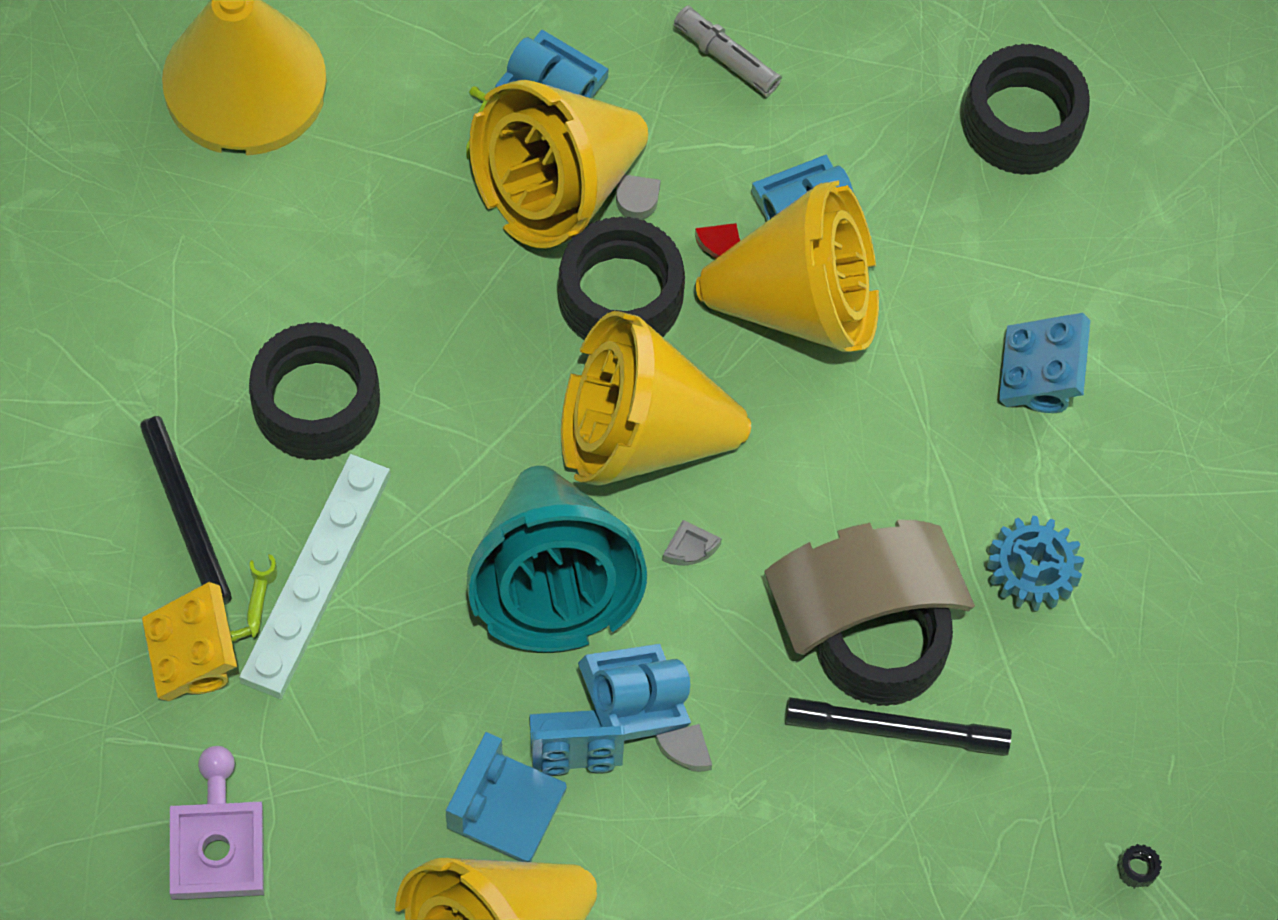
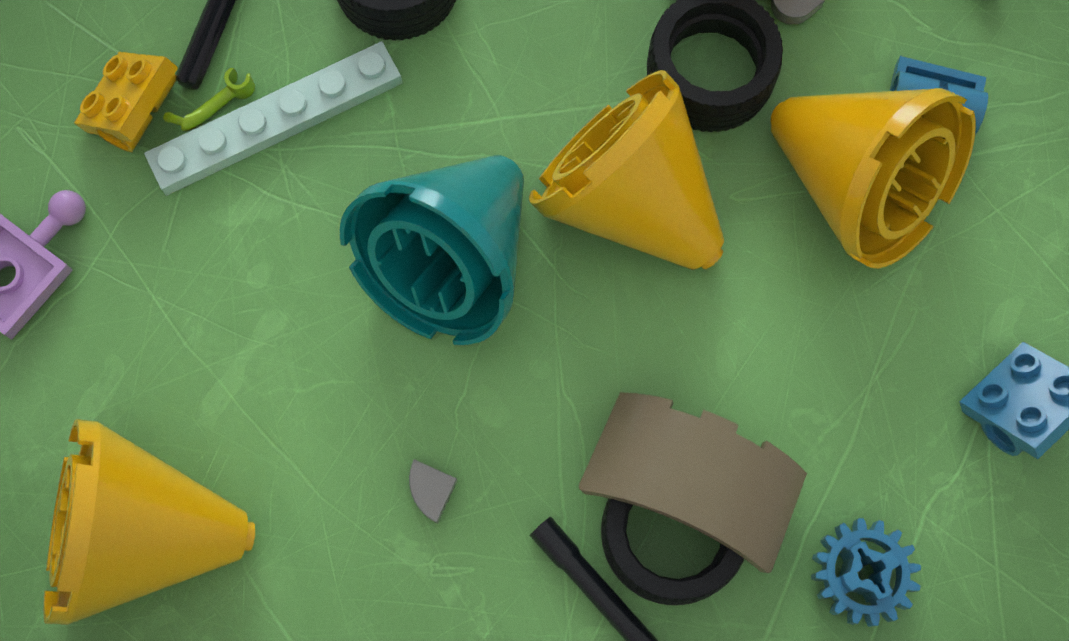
camera: 45 degrees right, 10 degrees up
(504, 802) = (244, 414): dark azure bracket -> none
(574, 741) = (352, 411): dark azure bracket -> none
(638, 690) = (424, 411): dark azure plate -> none
(690, 545) = (584, 321): light grey tile -> none
(717, 238) = (831, 81): red tile -> none

